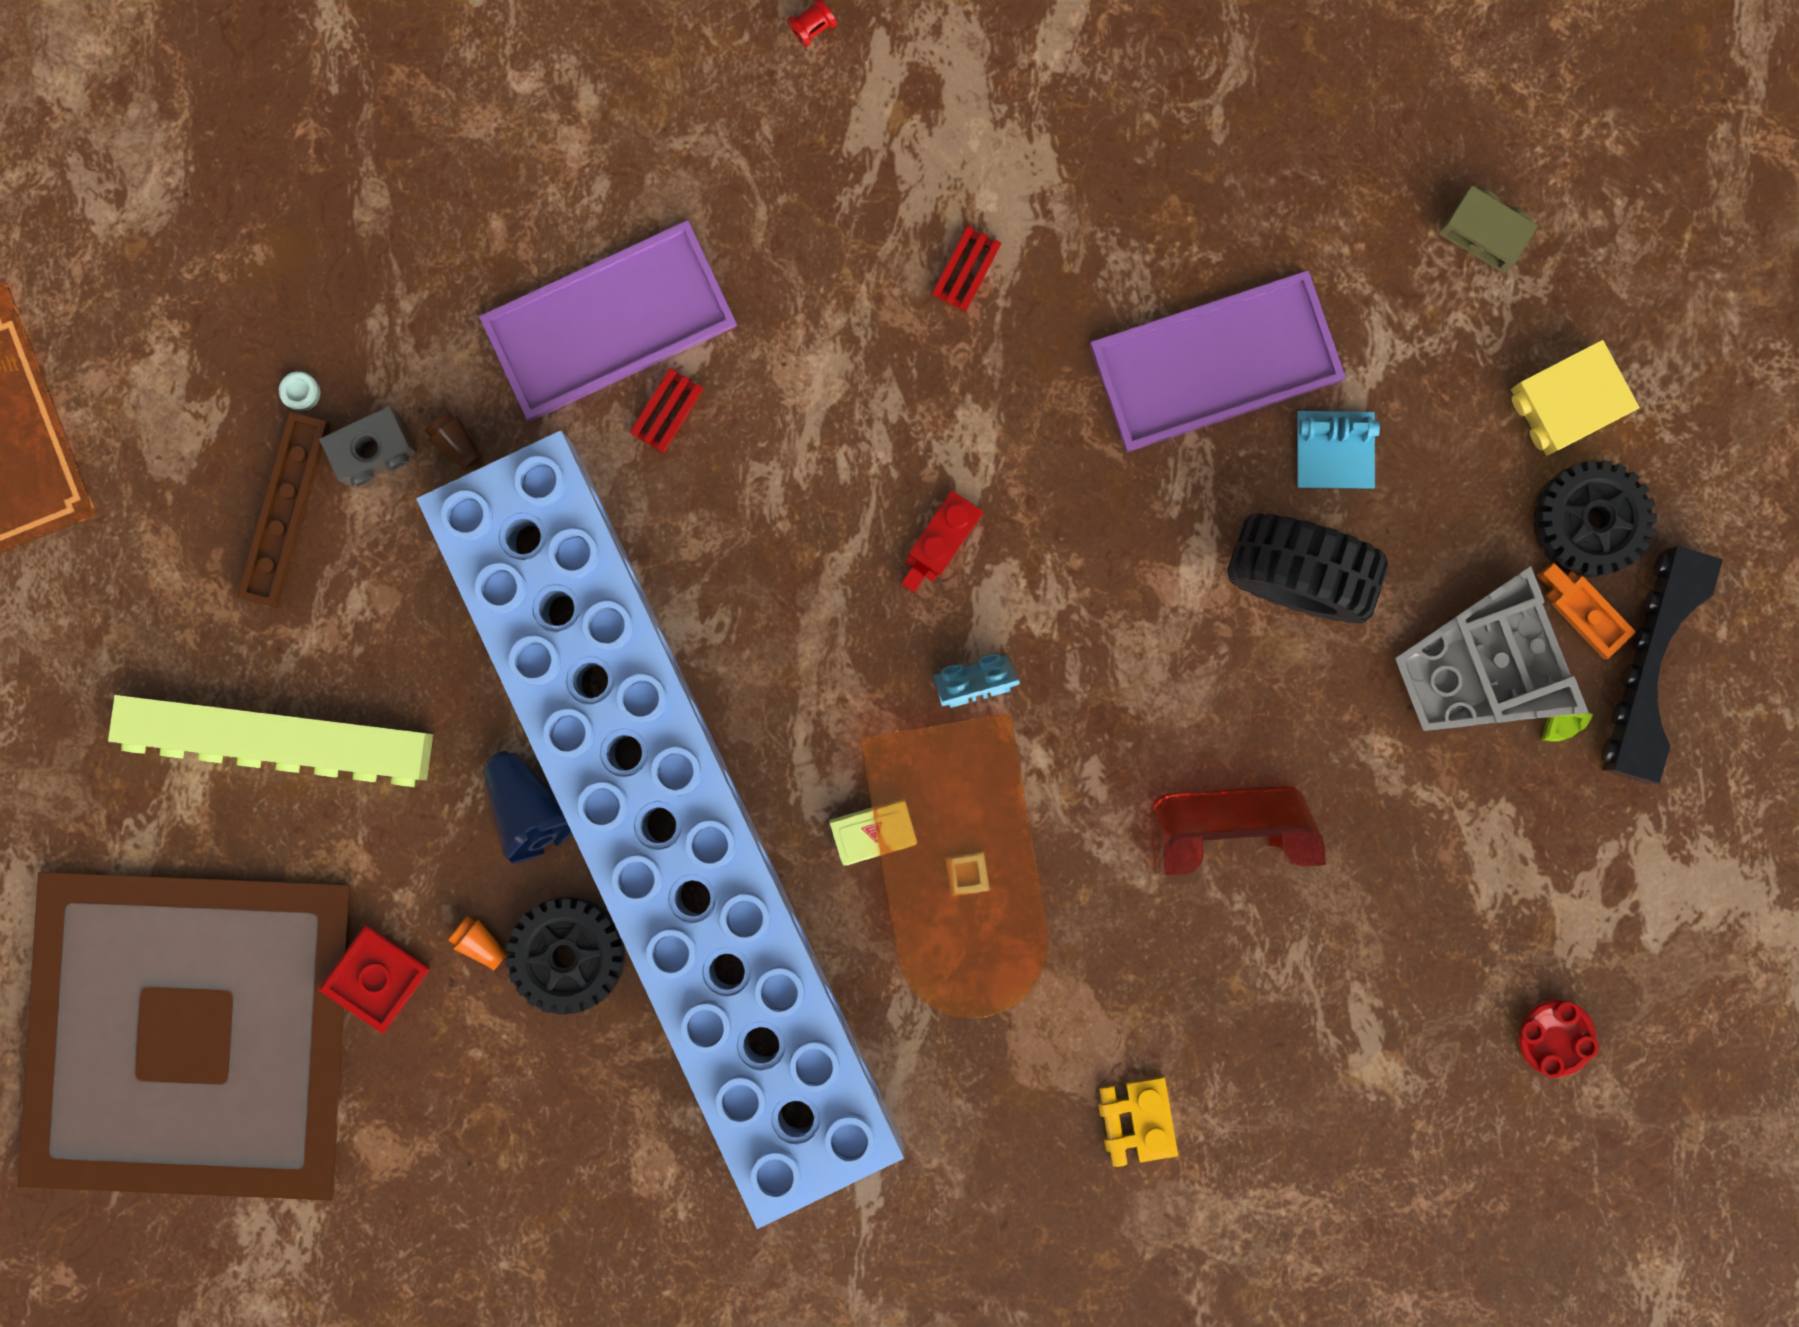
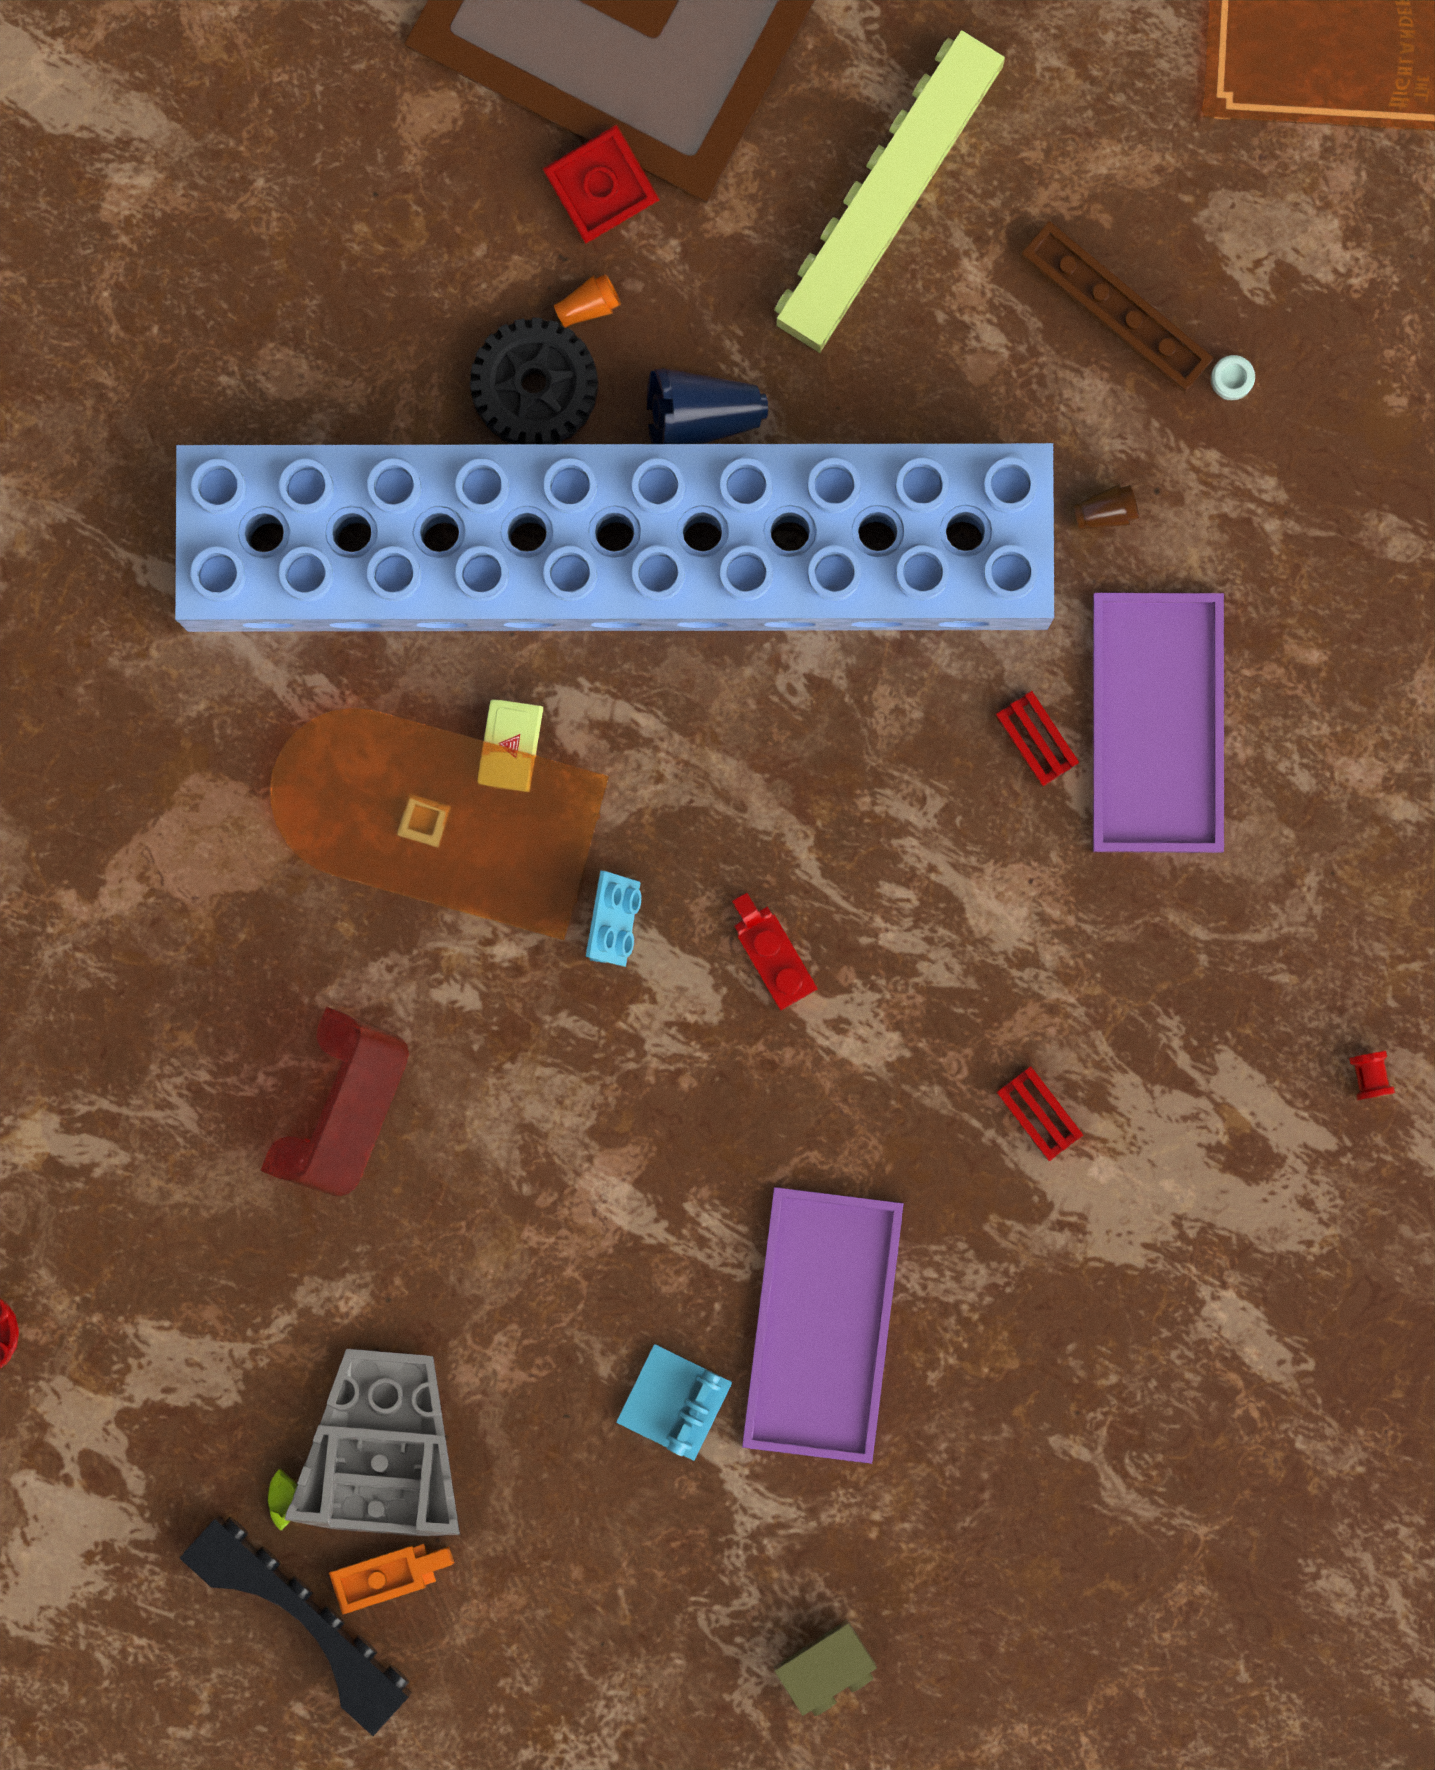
camera: 120 degrees right, 0 degrees up
(346, 446) = (1151, 397): dark grey brick -> none
(1150, 1118) = (95, 887): yellow plate -> none
(1308, 568) = (562, 1300): black tyre -> none
(1573, 398) = (609, 1669): light yellow brick -> none
(1623, 513) = (471, 1666): black wheel -> none

